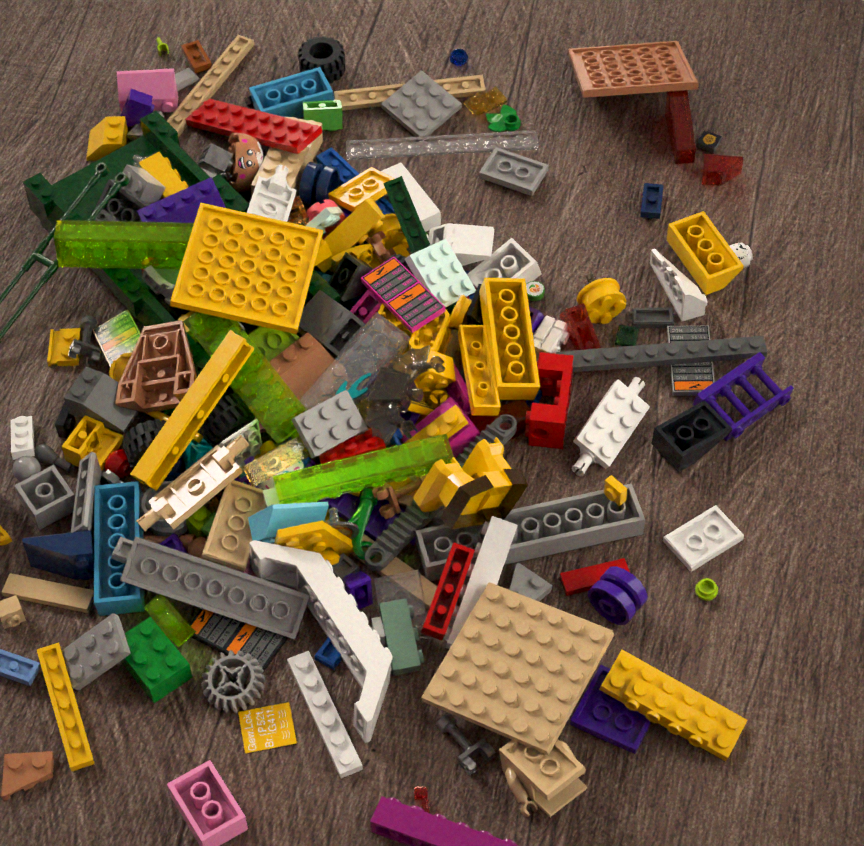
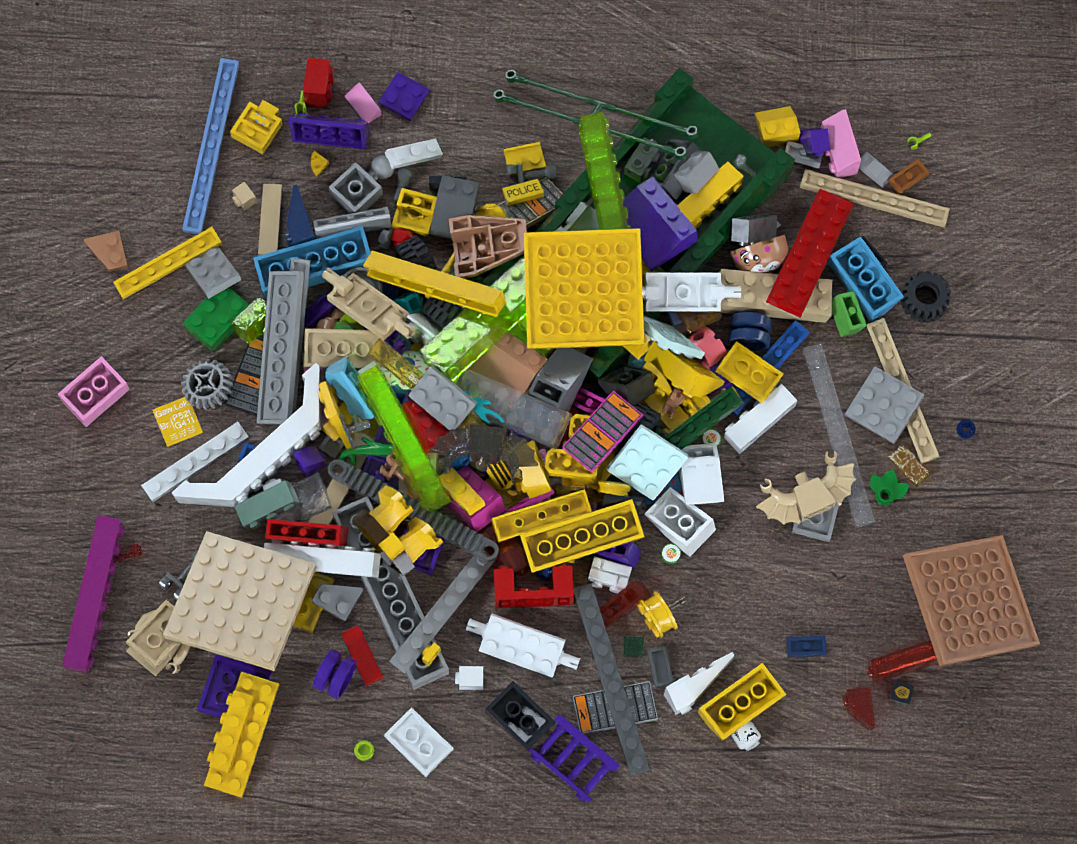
camera: 75 degrees right, 20 degrees up
(105, 345) = (523, 192): none -> yellow tile
(502, 165) = (810, 496): none -> tan torso
(567, 483) = (440, 613): none -> light grey plate
(640, 475) = (469, 678): none -> white brick

